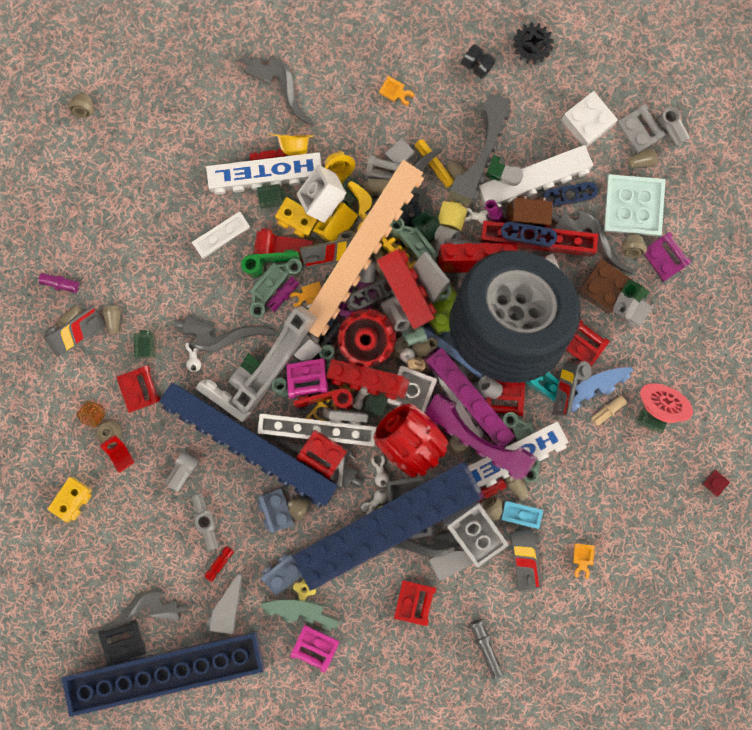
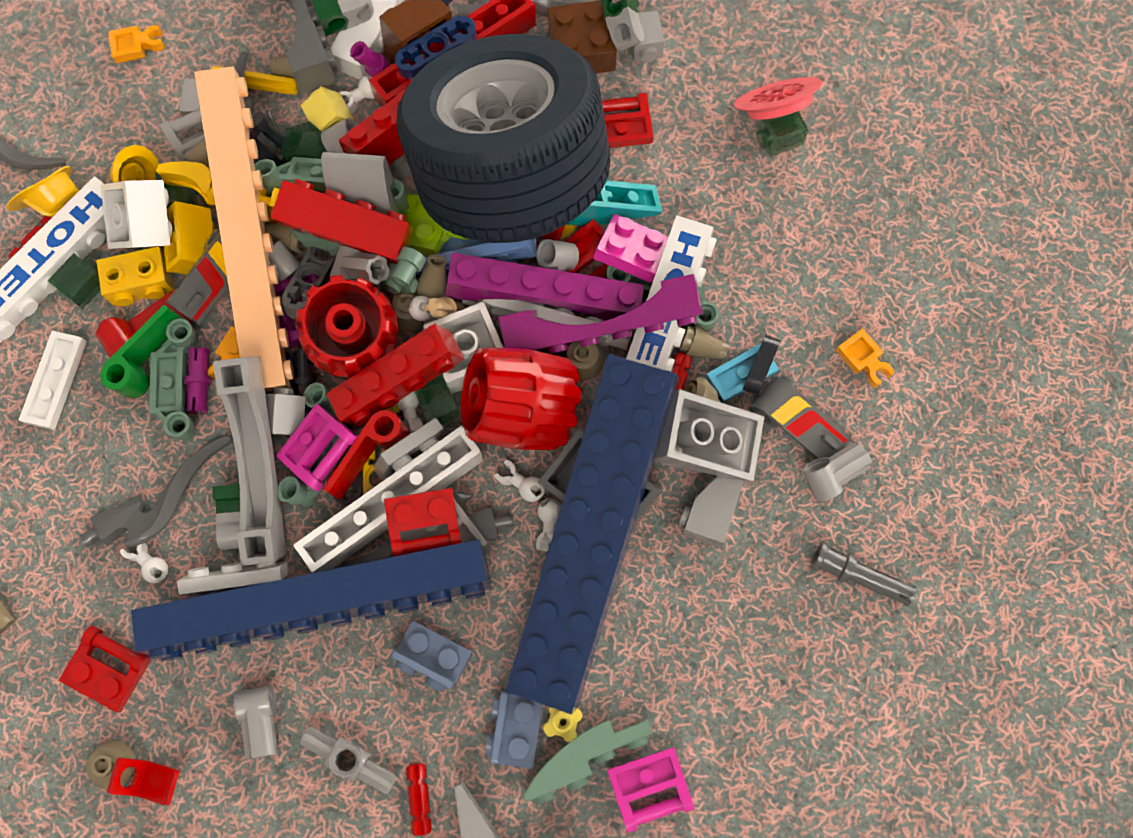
camera: 40 degrees left, 10 degrees down
(91, 414) = (64, 762): clear orange slope -> none
(144, 344) = (63, 603): clear green brick -> none
(299, 506) = (457, 621): dark tan cone -> none
(408, 602) = (709, 608): red plate -> none
(438, 549) = (683, 503): dark grey piece -> none
(514, 594) = (829, 473): none -> light grey piece
(528, 413) = (631, 248): none -> plate
(531, 521) = (761, 365): none -> black beam
(570, 374) = (648, 176): dark grey door -> none
(602, 382) = (680, 149): medium blue slope -> none
(609, 410) = (721, 166): tan axle -> none
(715, 483) = (921, 138): dark red plate -> none

